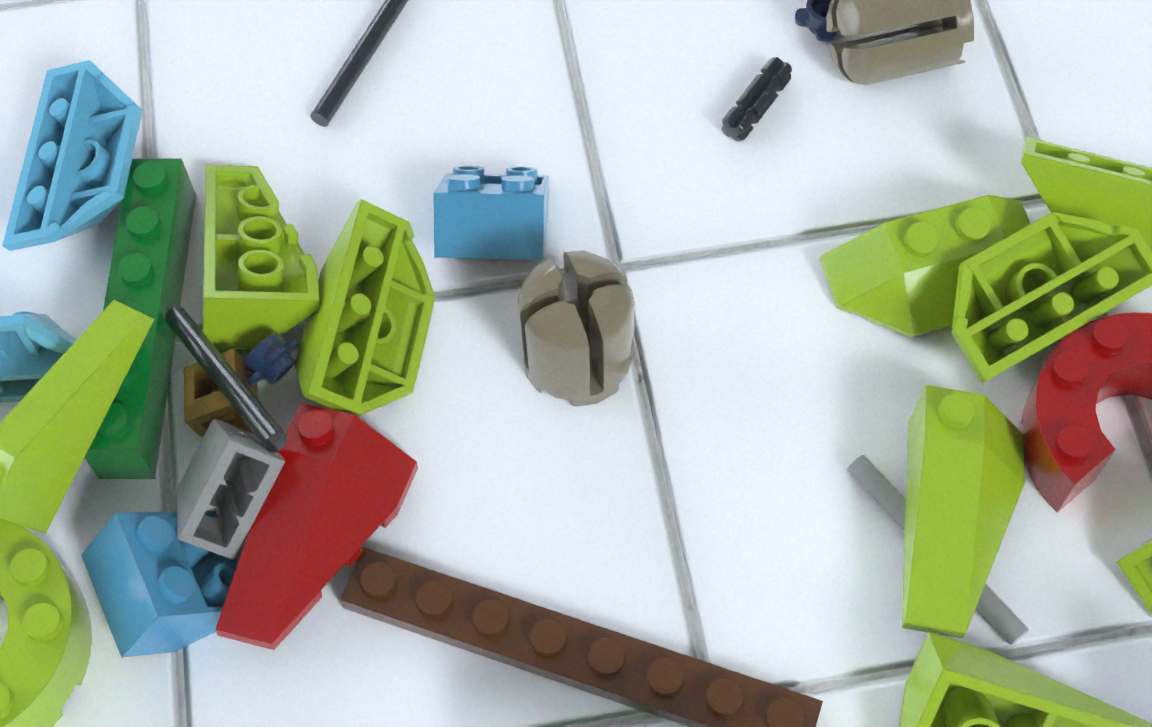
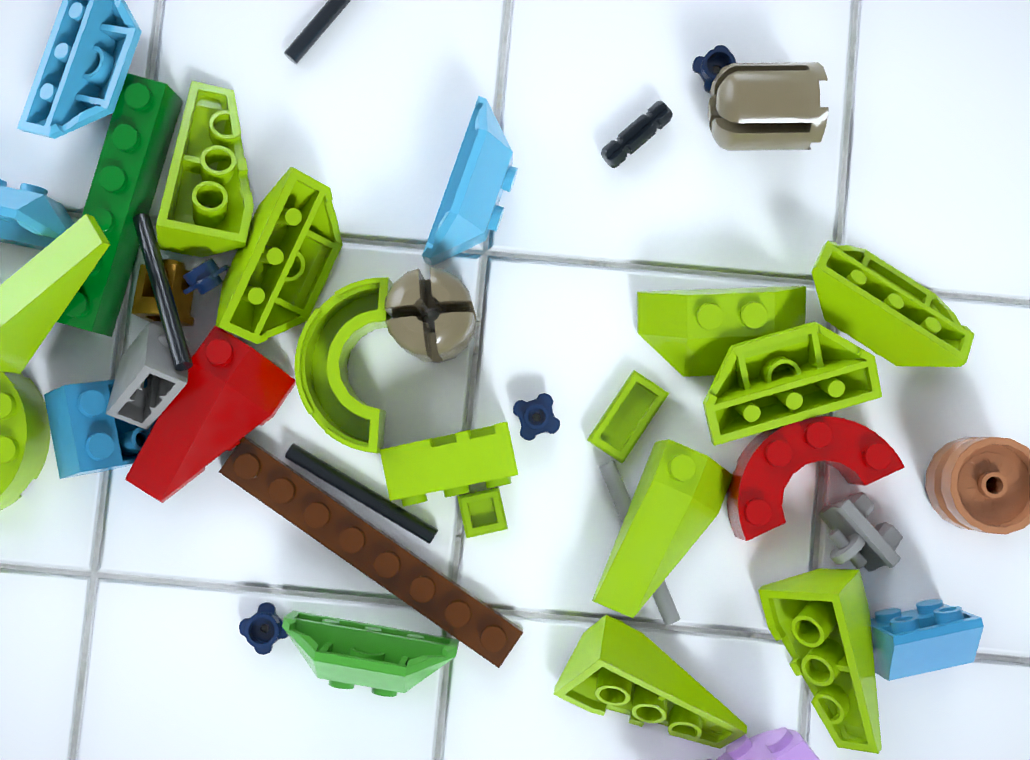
camera: 10 degrees right, 25 degrees up
(471, 460) = (323, 362): none -> lime brick
(491, 214) = (398, 188): dark azure slope -> none
(543, 582) = (361, 493): none -> black bar
(585, 183) = (474, 188): none -> medium azure wedge
(657, 500) = (449, 464): none -> lime wedge
(713, 564) = (482, 512): none -> lime tile
(741, 442) = (547, 422): none -> dark blue plate
(861, 402) = (627, 416): none -> lime tile

